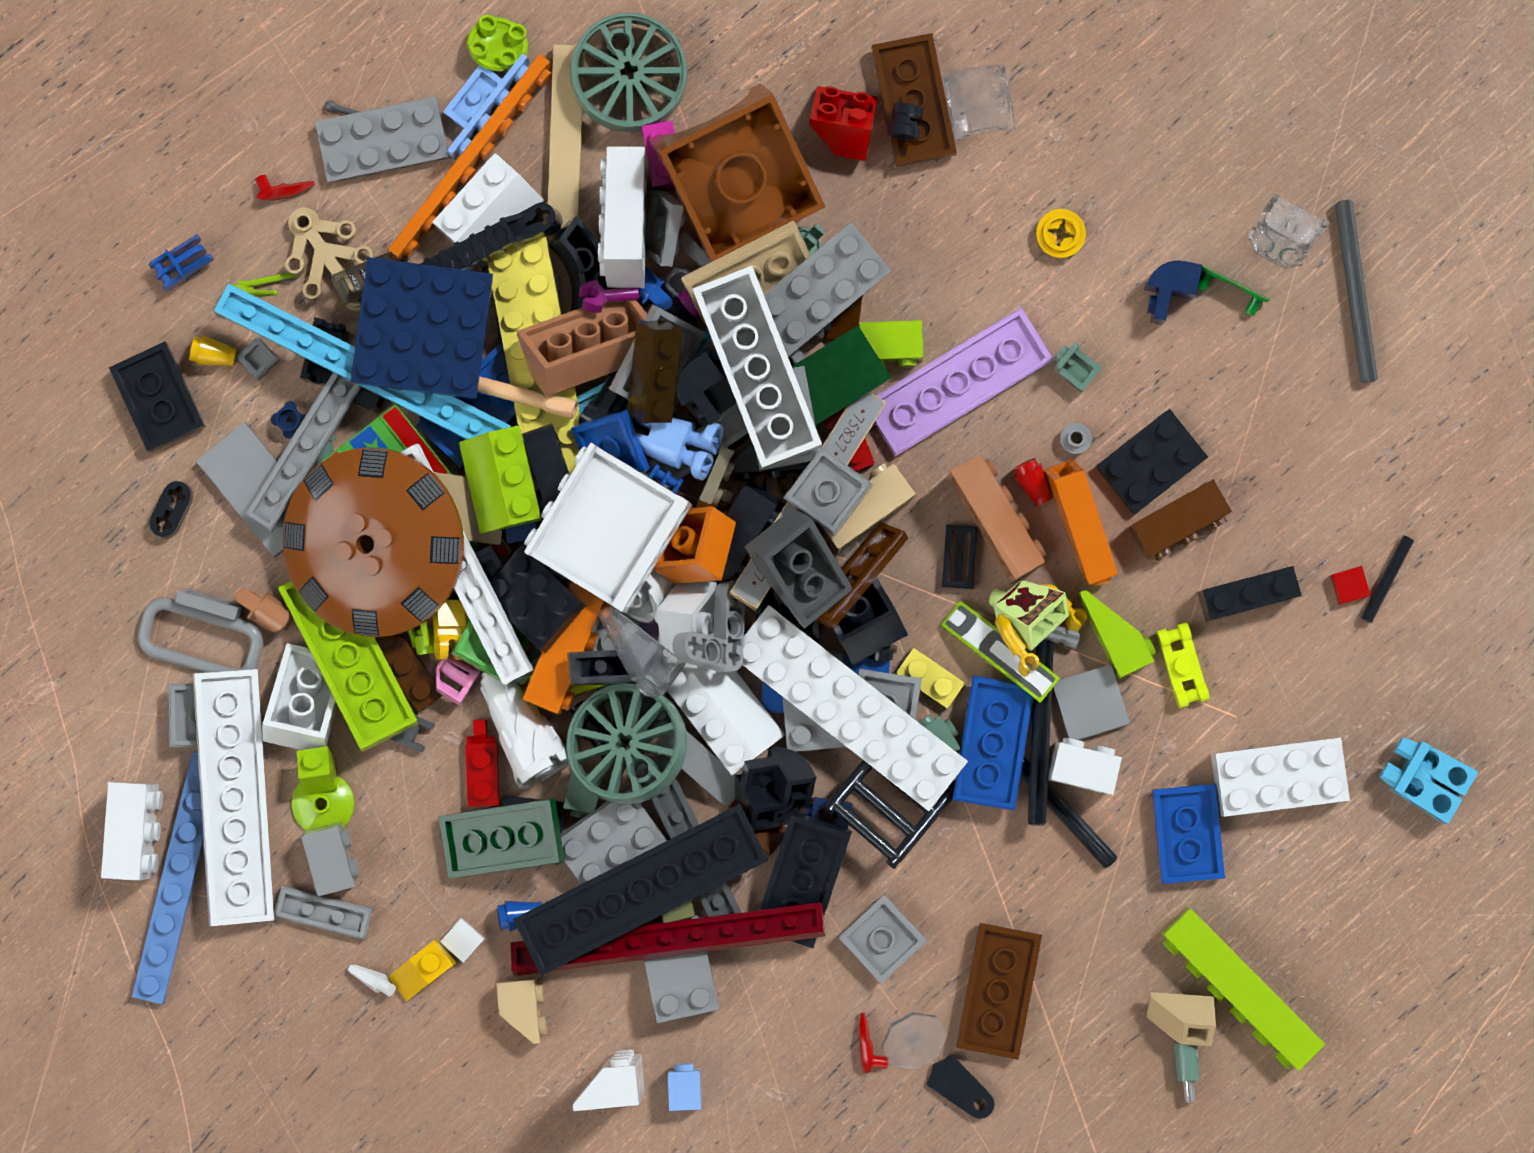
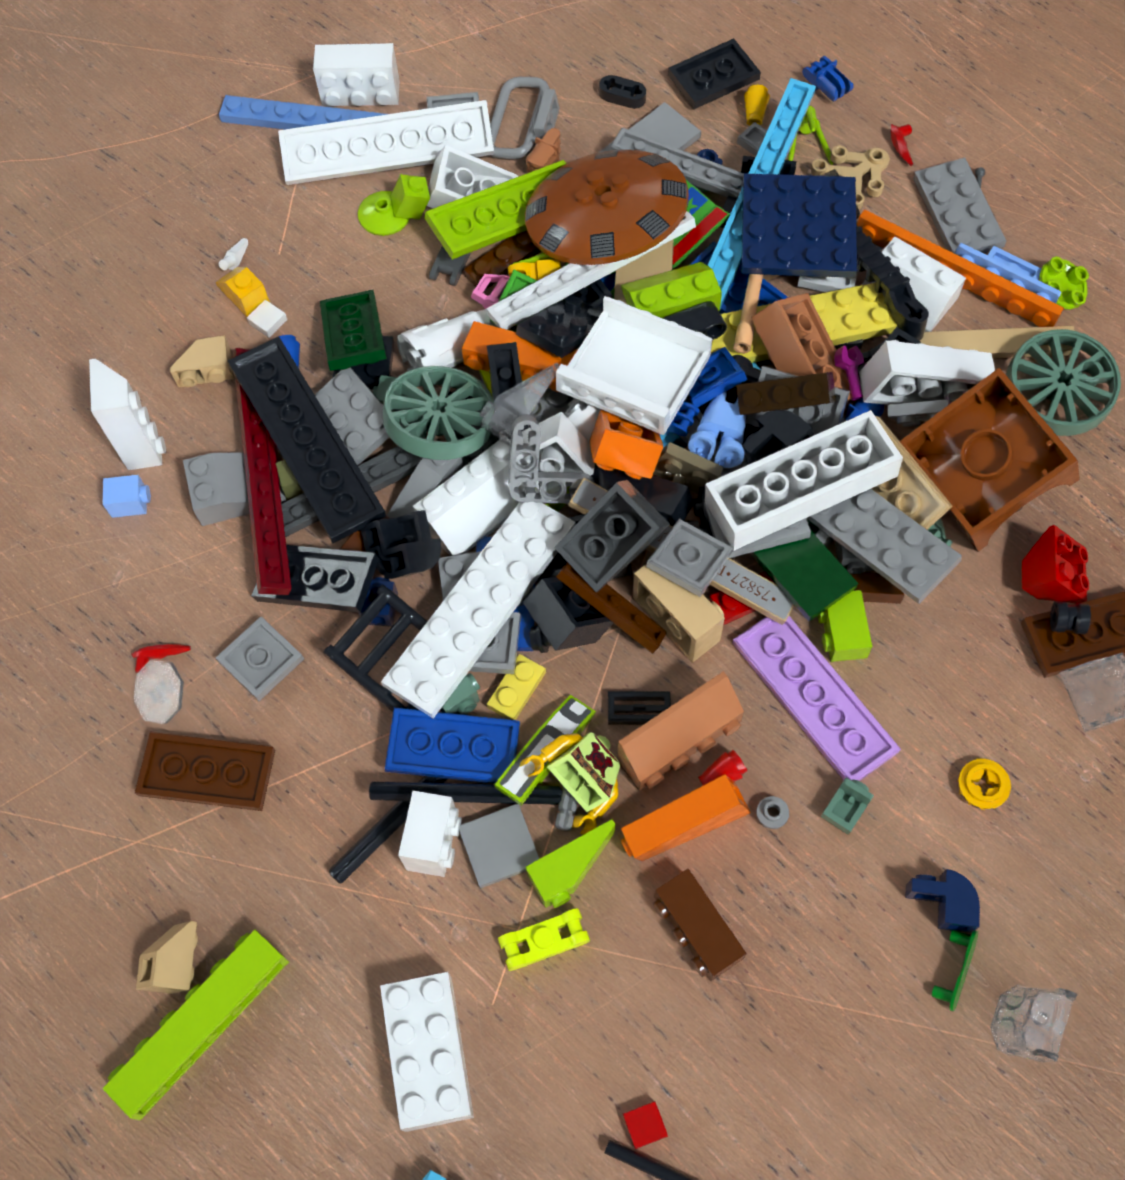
camera: 85 degrees right, 20 degrees down
(323, 912) = (292, 219): light grey tile -> none
(330, 858) = (335, 213): light grey brick -> none
(482, 767) = (401, 320): red hinge -> none
(959, 1086) = (113, 743): black piece -> none
(1151, 461) = (758, 894): black plate -> none
(1187, 1068) = (114, 969): sand green piece -> none
(1188, 833) = (363, 954): blue plate -> none
(1249, 593) = (625, 1005): black brick -> none
(1356, 291) = (979, 1112): dark grey axle -> none

